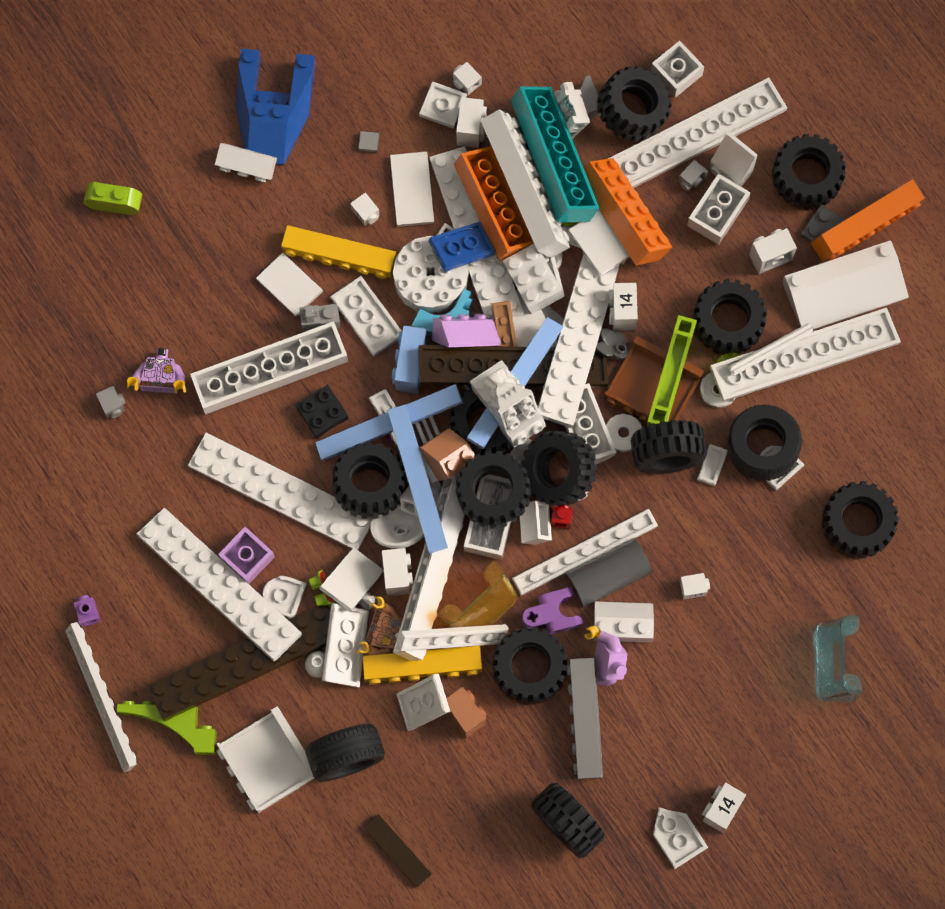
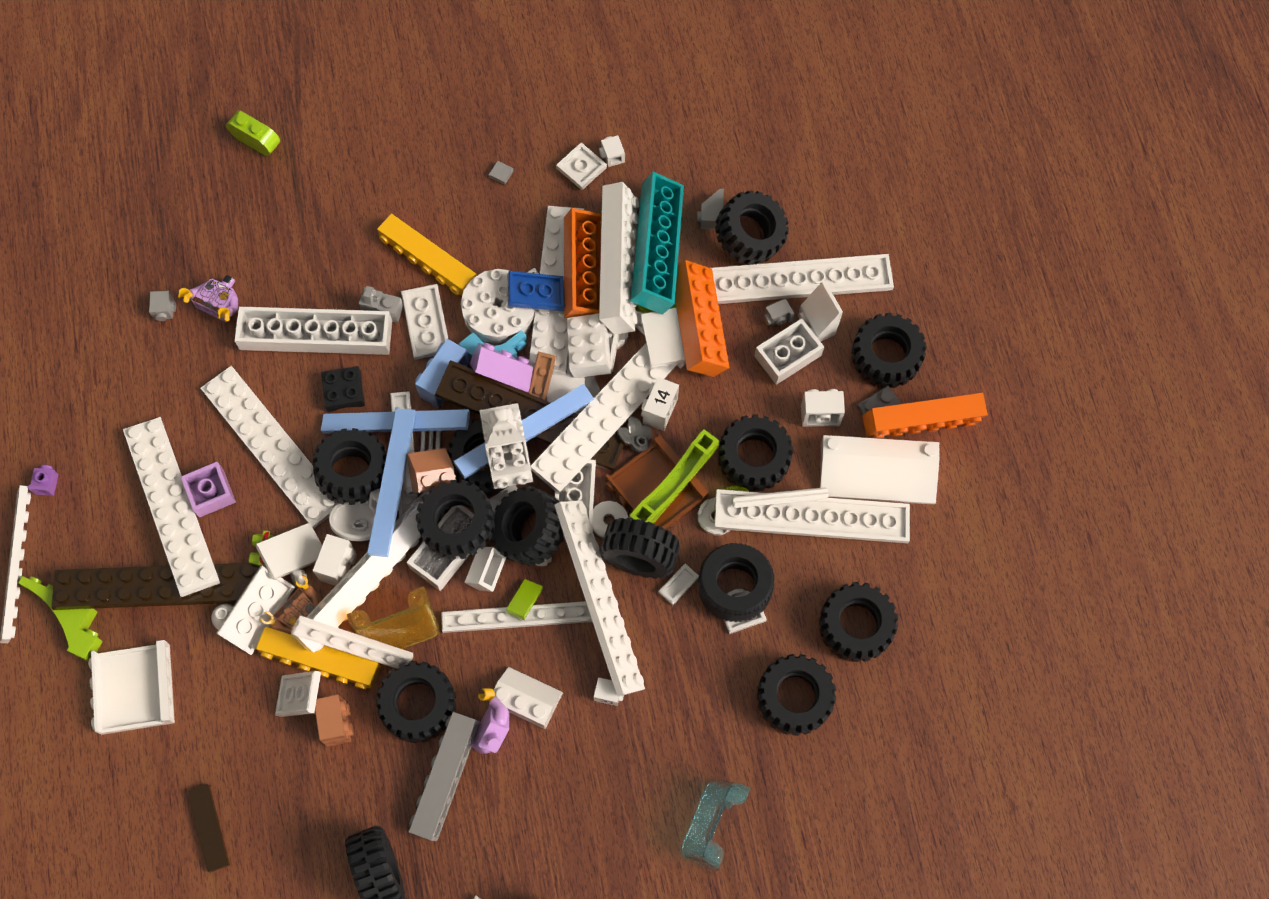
camera: 20 degrees right, 5 degrees down
(245, 162) = (383, 147): white brick -> none
(273, 119) = (426, 122): blue wedge -> none
(284, 594) = (226, 541): white tile -> none
(289, 284) = (370, 265): white tile -> none
(345, 752) = (198, 710): black tyre -> none
(365, 209) = (468, 228): white brick -> none
(412, 189) = (519, 227): white tile -> none
(469, 127) = (591, 187): white brick -> none
(548, 613) = (458, 660): medium lavender piece -> none
(562, 517) = (514, 574): red brick -> none
(572, 108) = (692, 211): white hips -> none
(581, 535) = (524, 599): none -> lime tile
(609, 572) = (533, 645): dark grey brick -> none
(651, 505) = (599, 597): none -> white plate
(677, 69) = (806, 214): white brick -> none
(900, 413) = (872, 601): none -> black tyre

